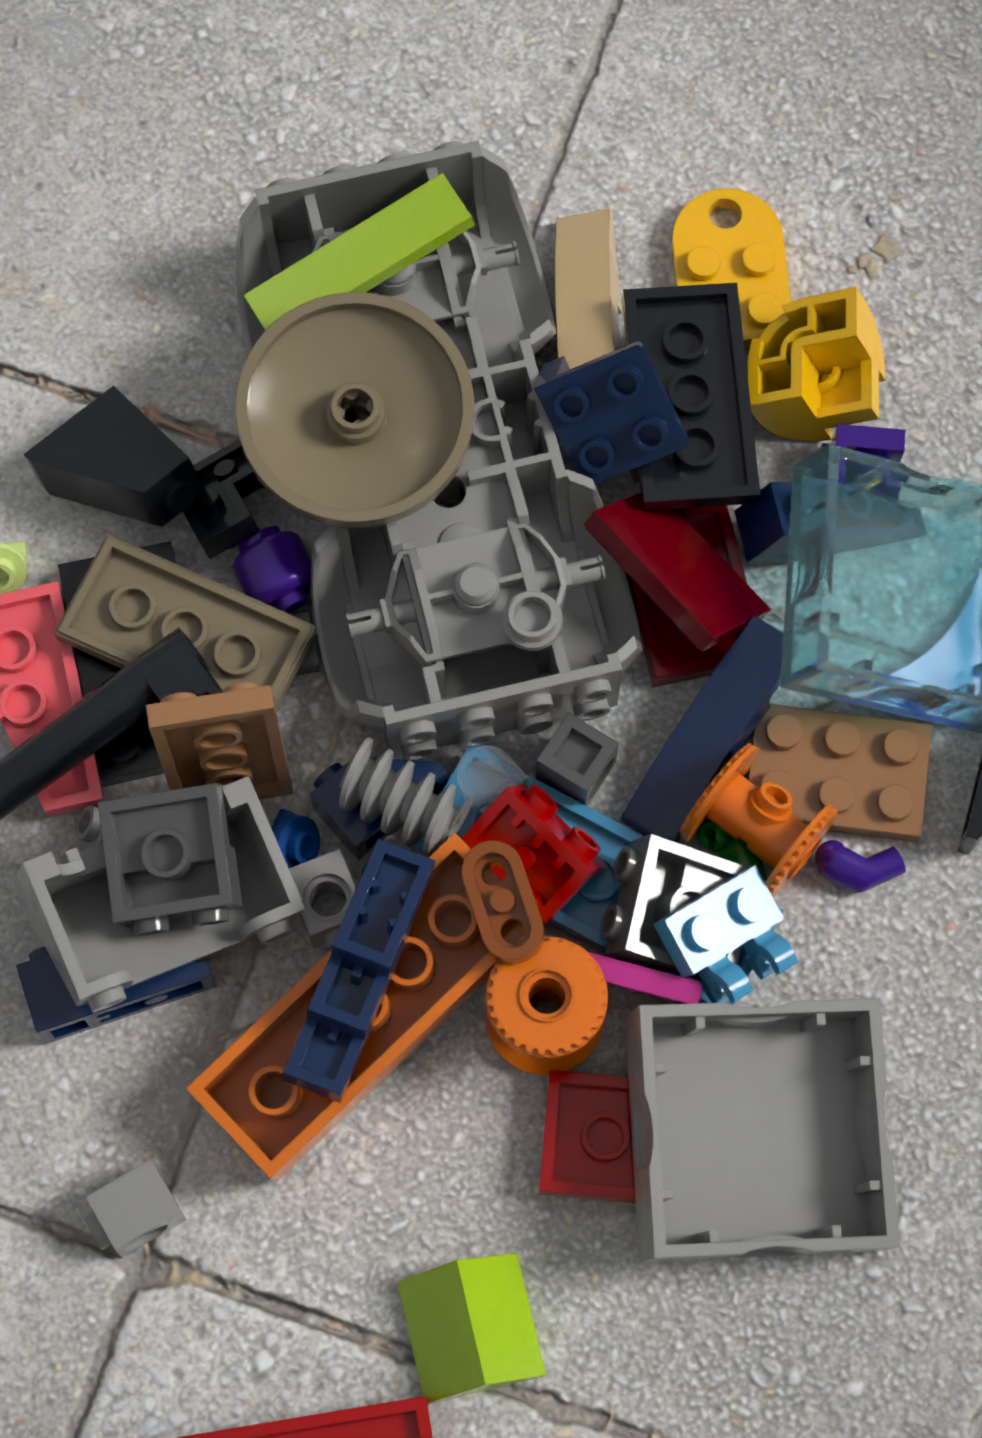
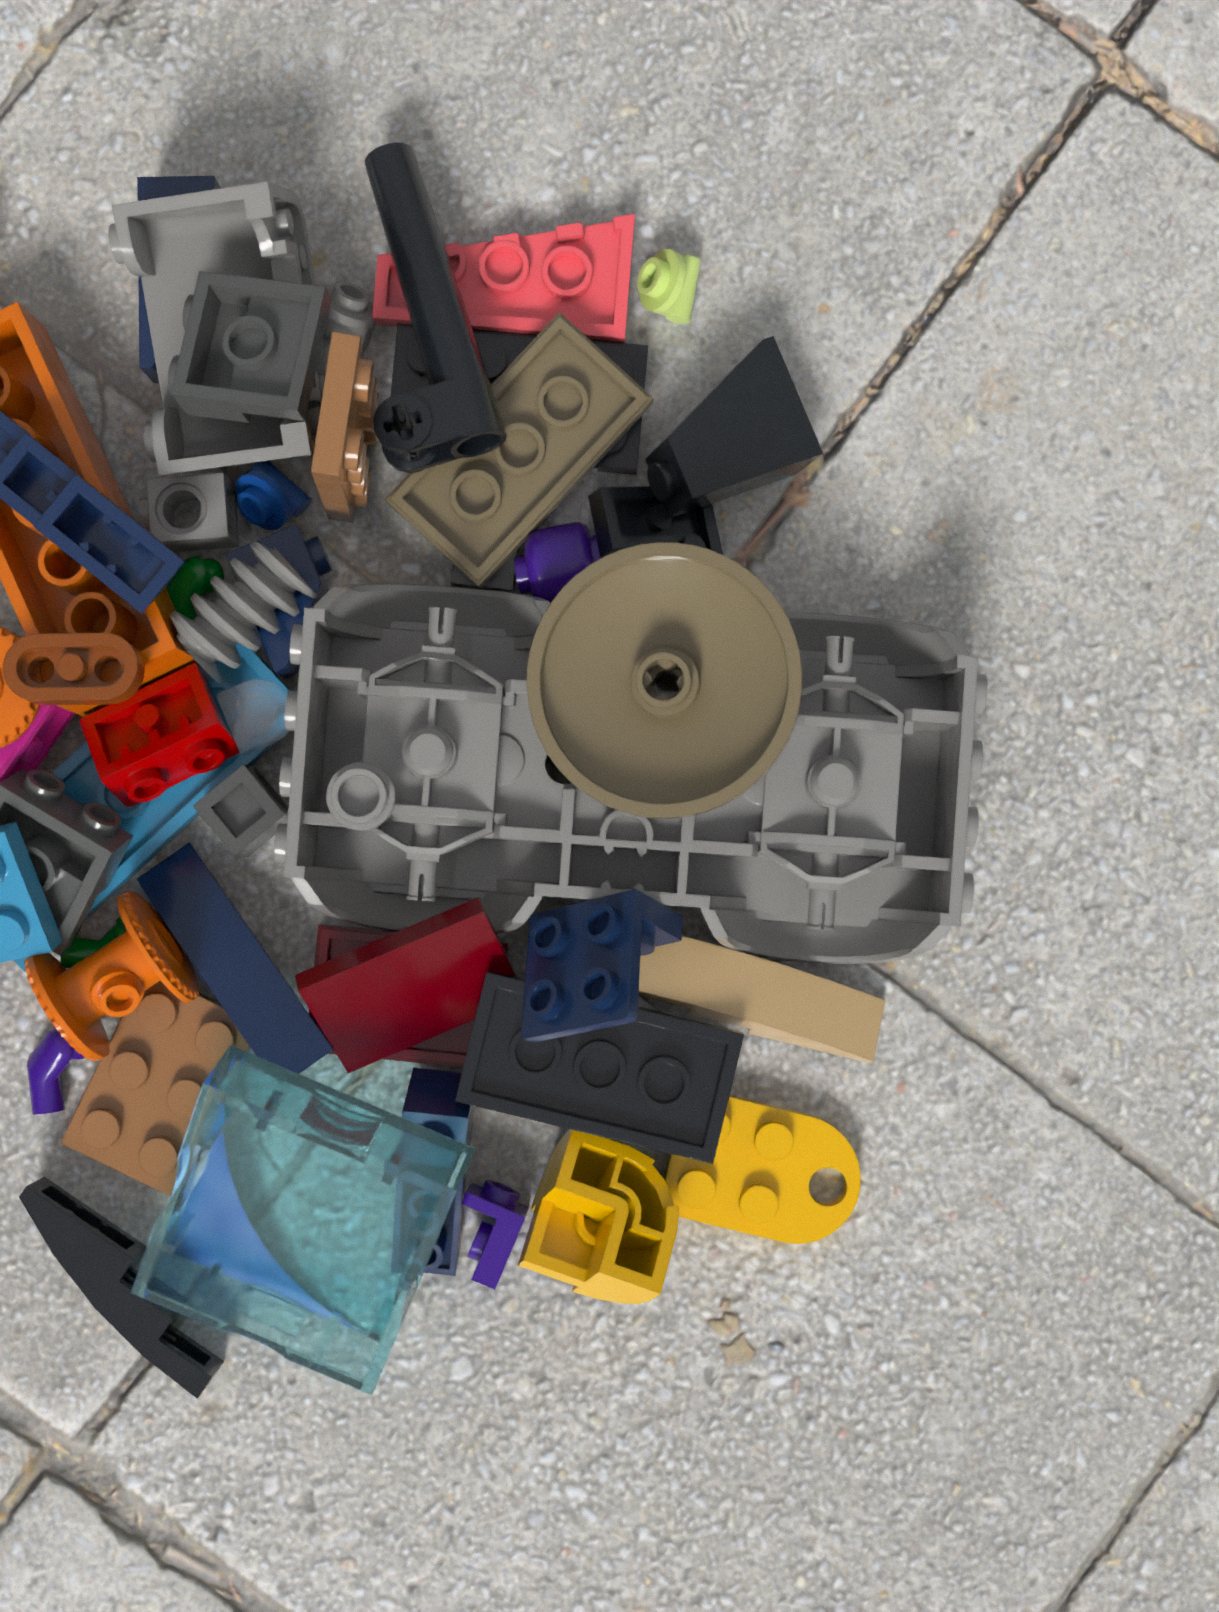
camera: 105 degrees right, 15 degrees up
(367, 251) = (848, 747): lime tile -> none

